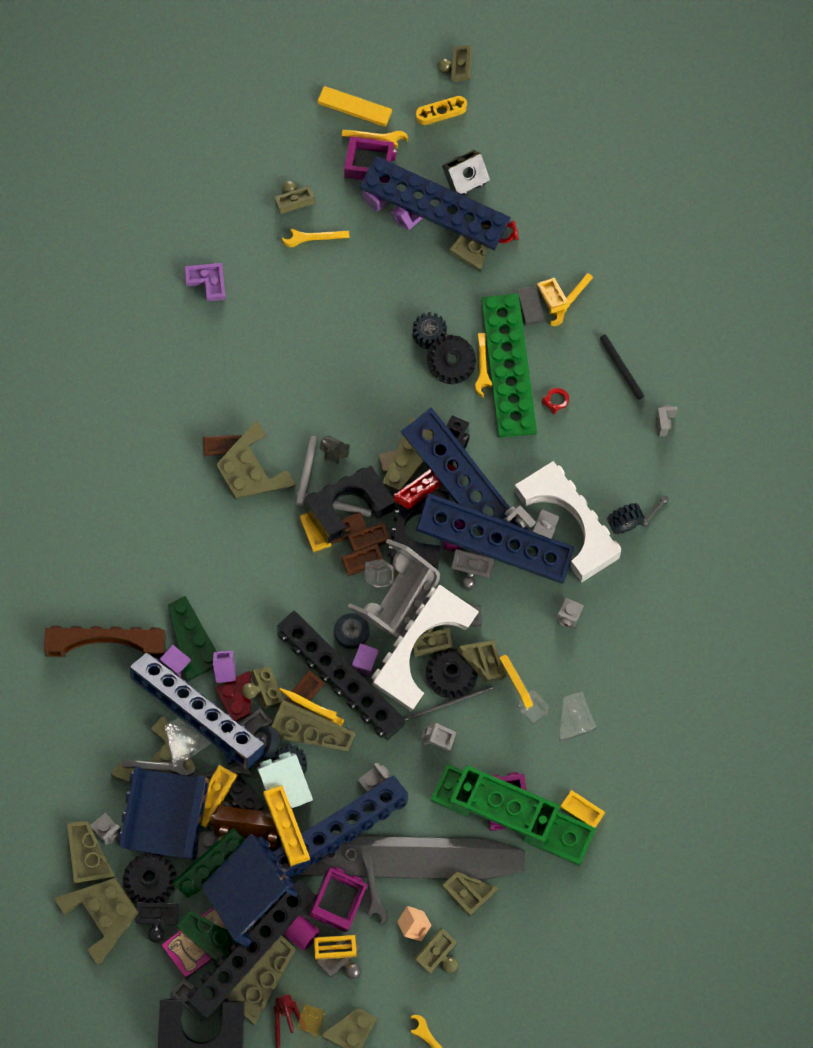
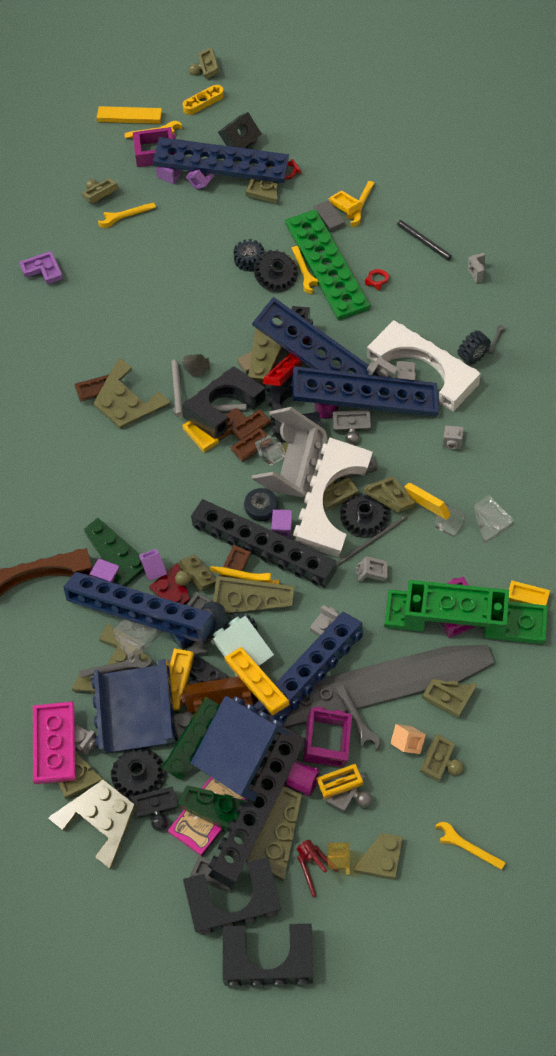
camera: 10 degrees left, 10 degrees down
(78, 826) = (54, 743): none -> dark pink tile

